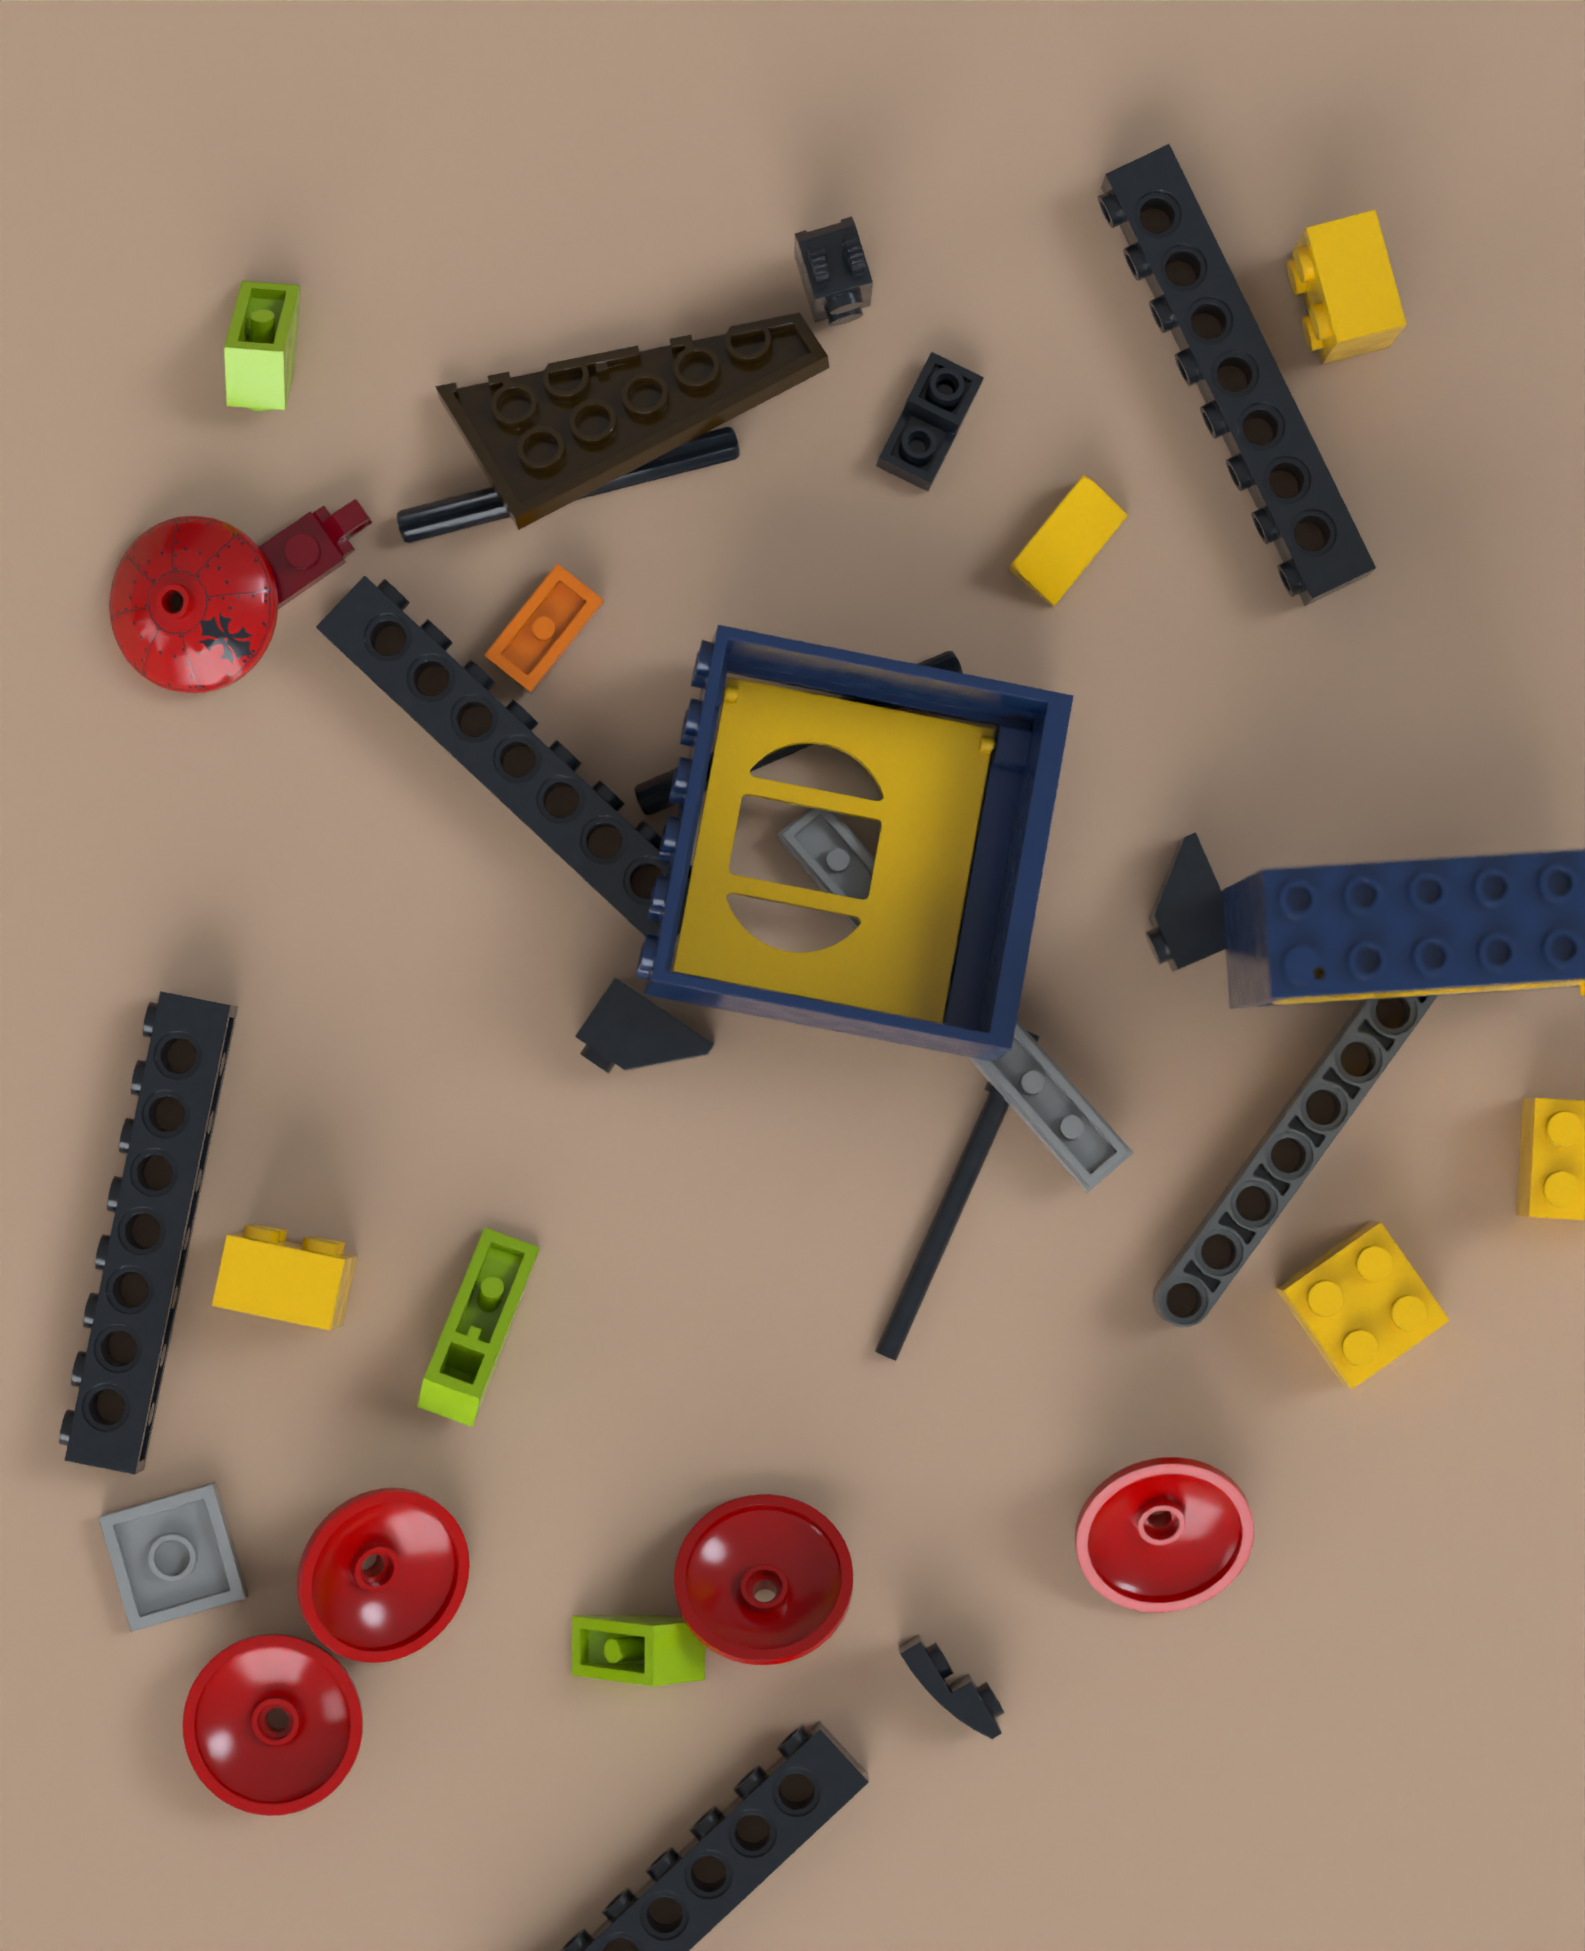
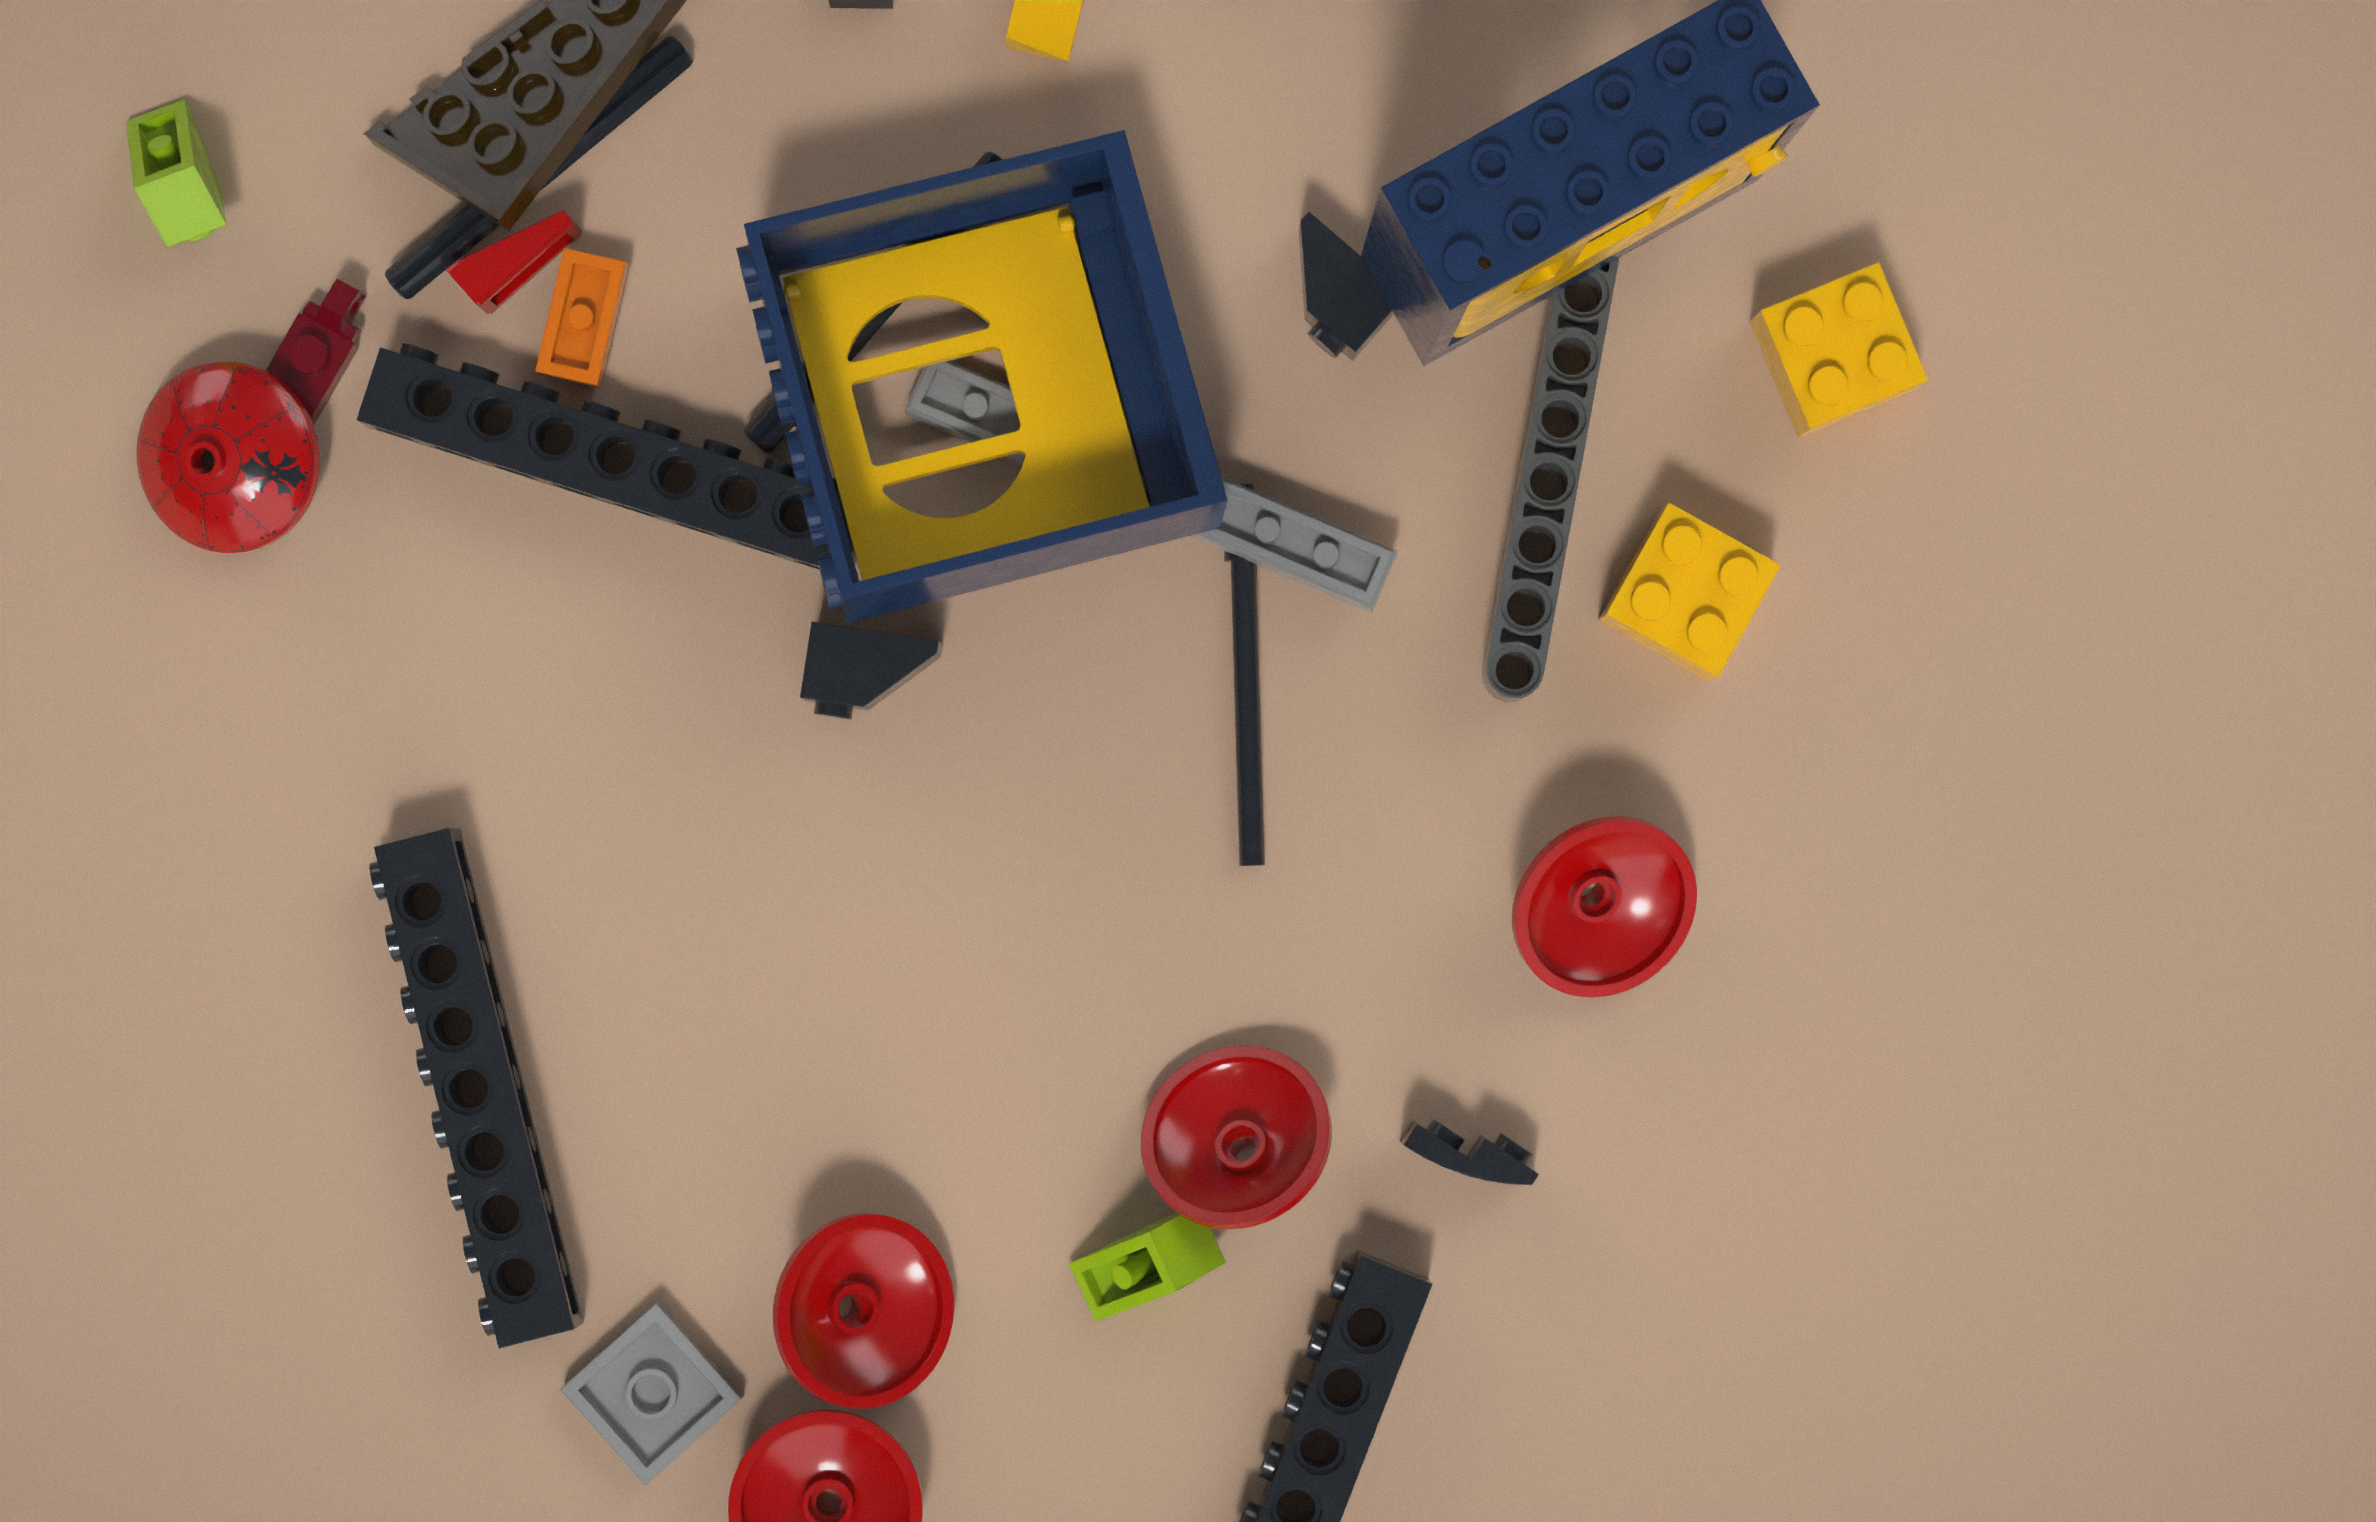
camera: 25 degrees left, 0 degrees up
(285, 1278) = (629, 1069): yellow brick -> none
(477, 1327) = (841, 1028): lime slope -> none
(501, 555) = (507, 265): none -> red slope

